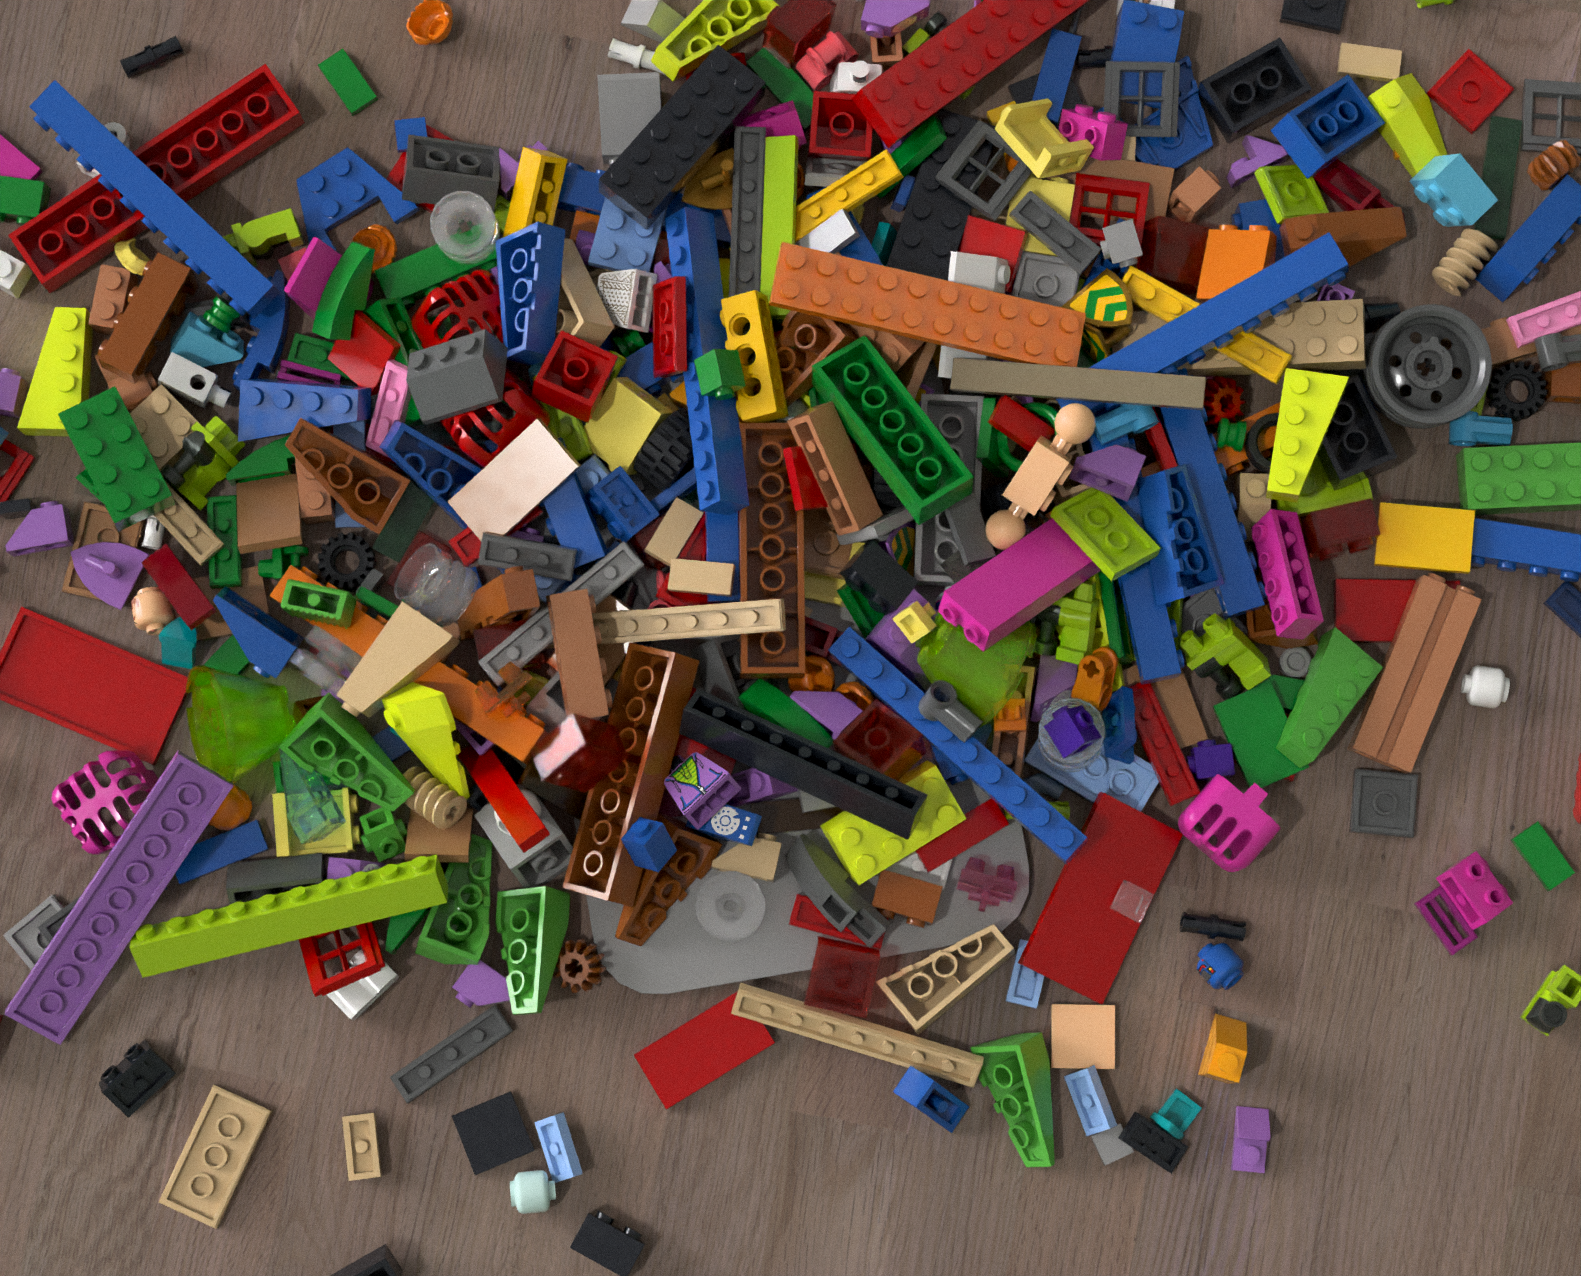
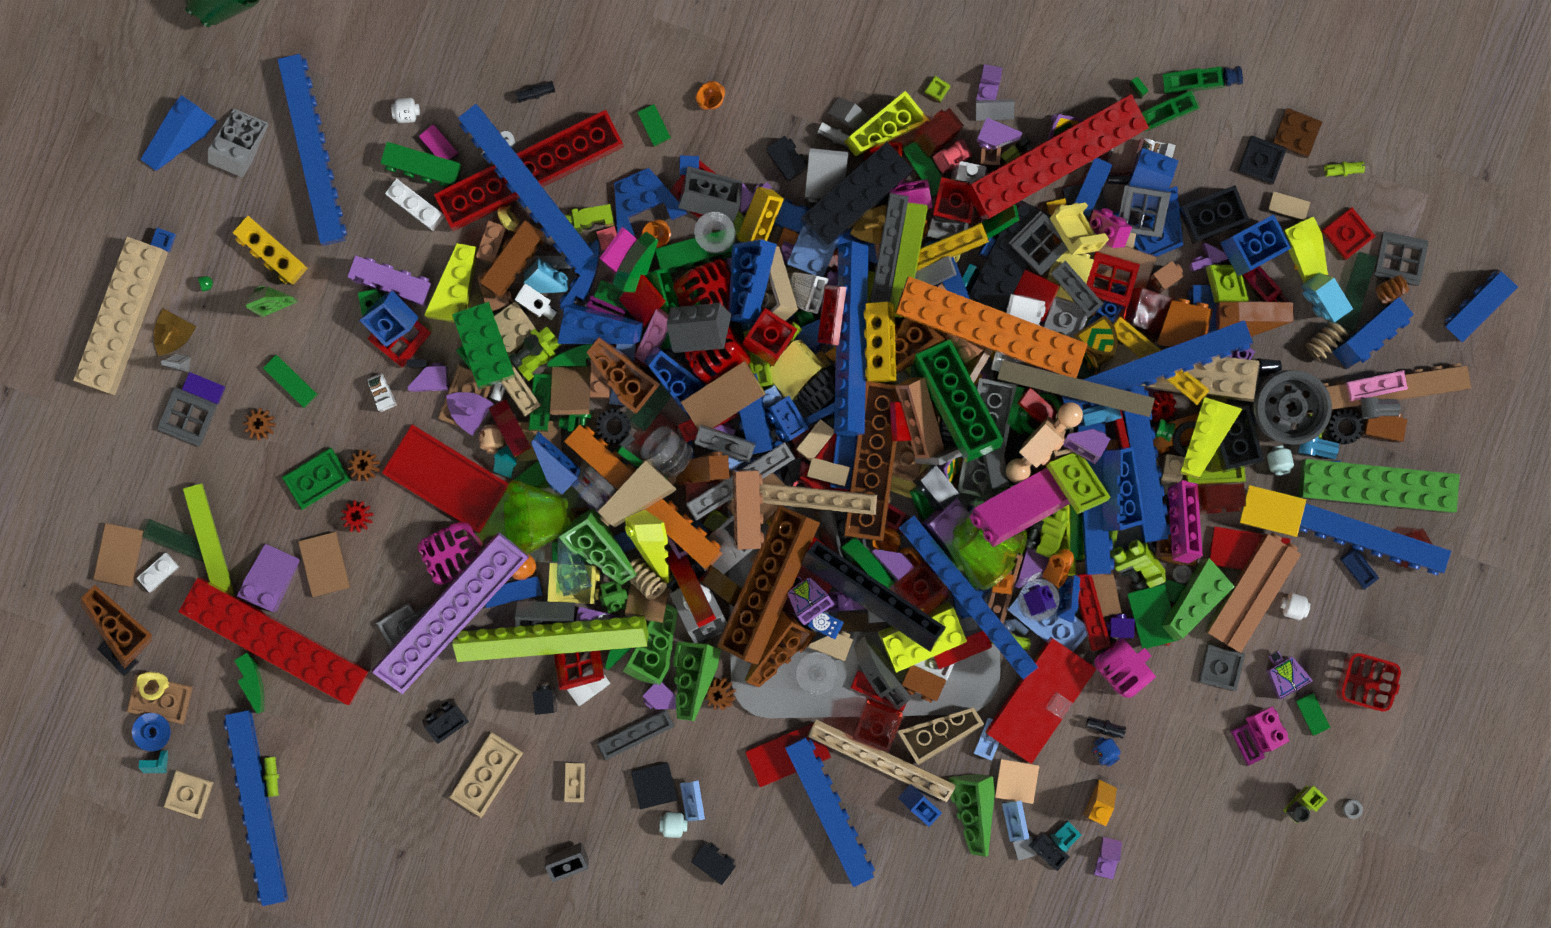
camera: 10 degrees right, 5 degrees up
(221, 314) = (558, 263): green wheel -> none
(293, 1018) = (544, 700): none -> black brick
(318, 603) = (594, 453): bright green brick -> none
(492, 699) = (707, 519): clear orange hips -> none
(565, 102) = (786, 158): none -> black brick
(579, 753) = (739, 568): clear red brick -> none
(649, 844) = (773, 630): blue brick -> none
(720, 373) = (858, 351): green brick -> none
(785, 1131) = (827, 807): none -> blue brick
(915, 620) = (955, 519): light yellow tile -> none
(942, 705) = (966, 578): dark grey piece -> none
(985, 887) = (971, 684): clear pink hips -> none
(1121, 243) = (1116, 302): light grey brick -> none
(1422, 459) = (1280, 460): none -> light aqua head
(1489, 799) = (1286, 675): none -> torso

